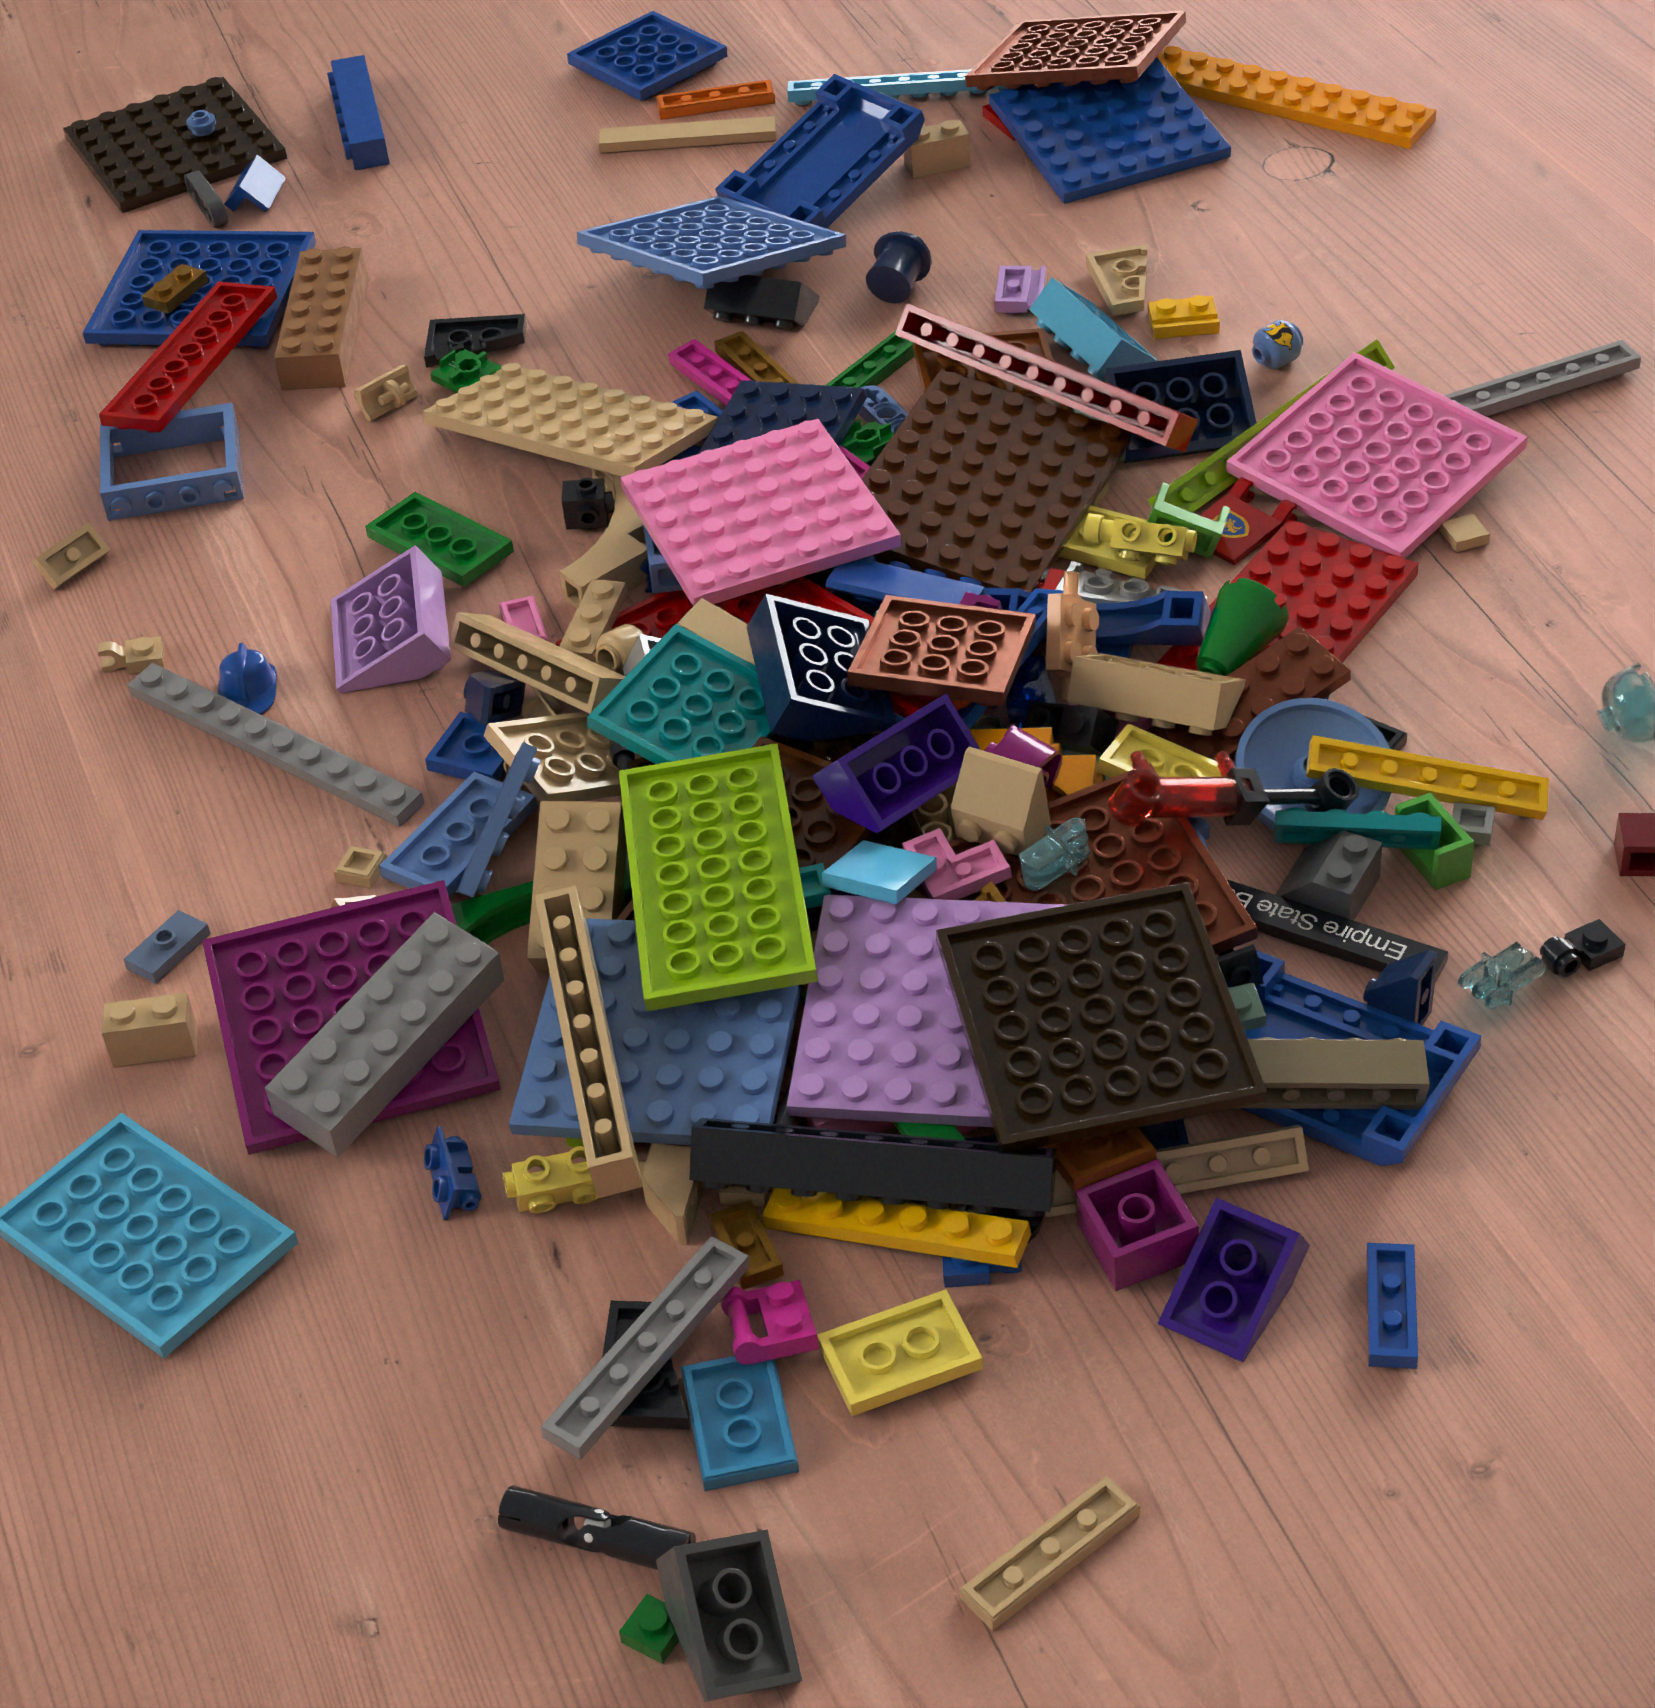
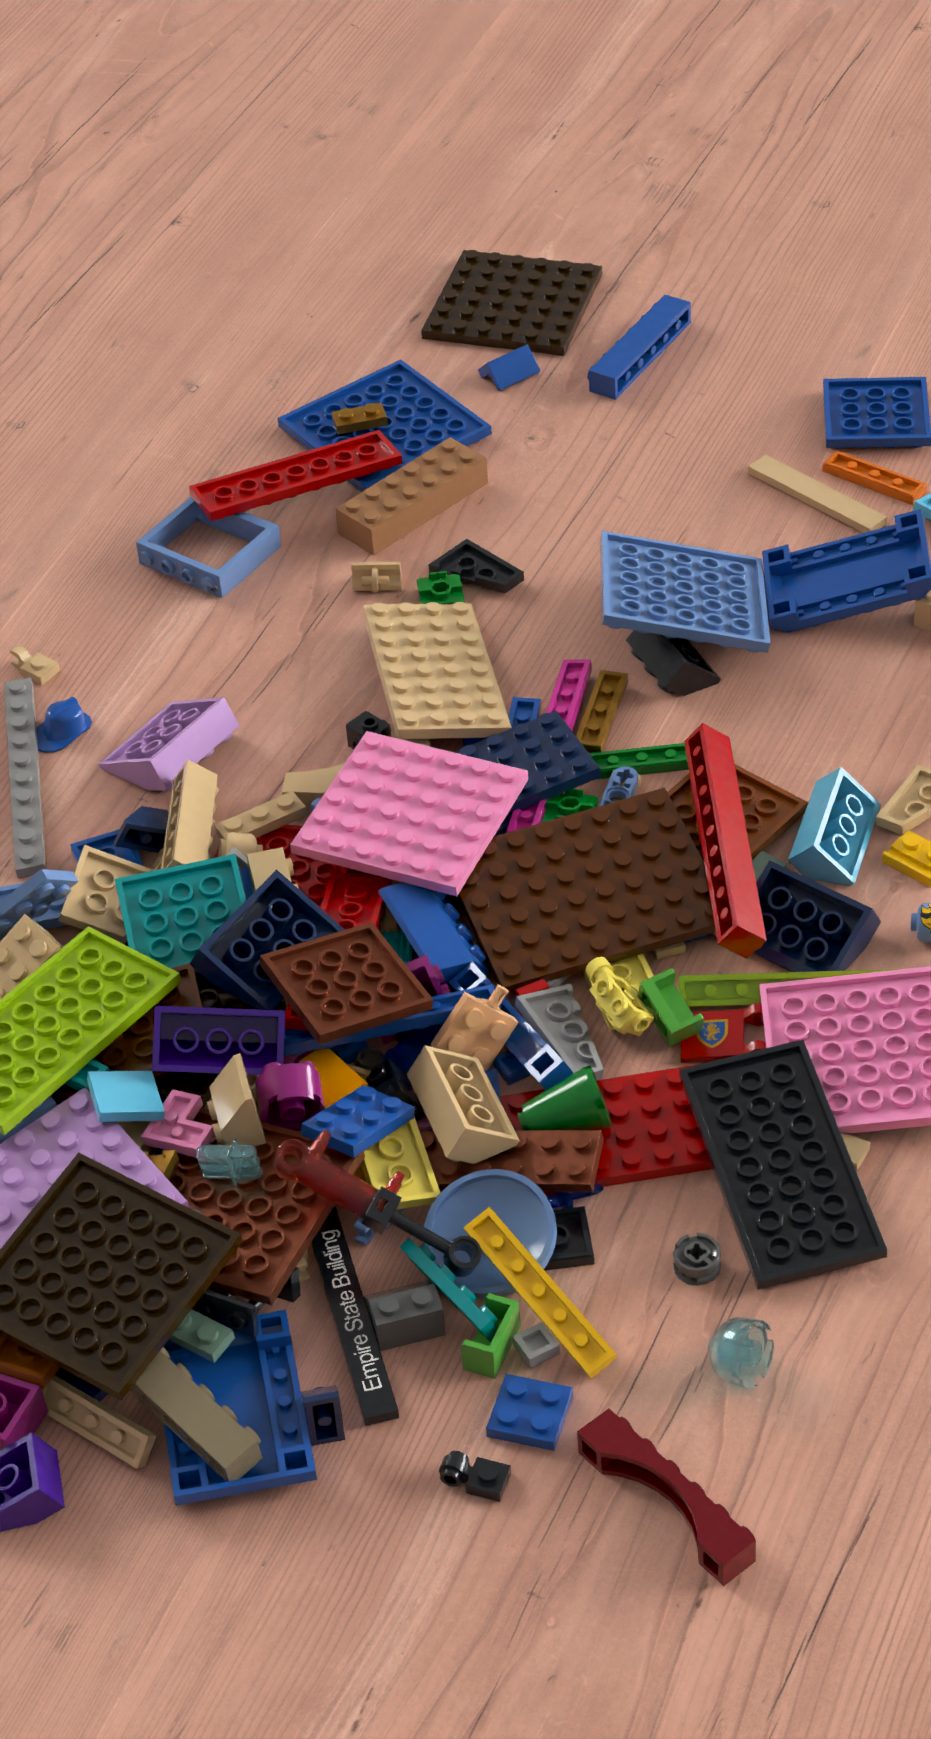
camera: 45 degrees right, 0 degrees up
(71, 556) = (82, 575): tan plate -> none
(201, 123) = (531, 297): medium blue plate -> none
(206, 198) = (469, 359): dark grey beam -> none
(450, 540) = (271, 702): green plate -> none
(524, 615) = (241, 794): bright pink tile -> none
(899, 263) = (777, 691): dark blue piece -> none
(1018, 288) = (848, 754): lavender plate -> none
(1103, 747) = (359, 1120): none -> blue plate
(1391, 1305) = (57, 1577): blue plate -> none
(1448, 564) = (782, 1164): none -> black plate
(1486, 676) = (697, 1258): none -> dark grey wheel
(1502, 975) = (399, 1449): clear light blue arm -> none
(1542, 875) = (529, 1412): none -> blue plate

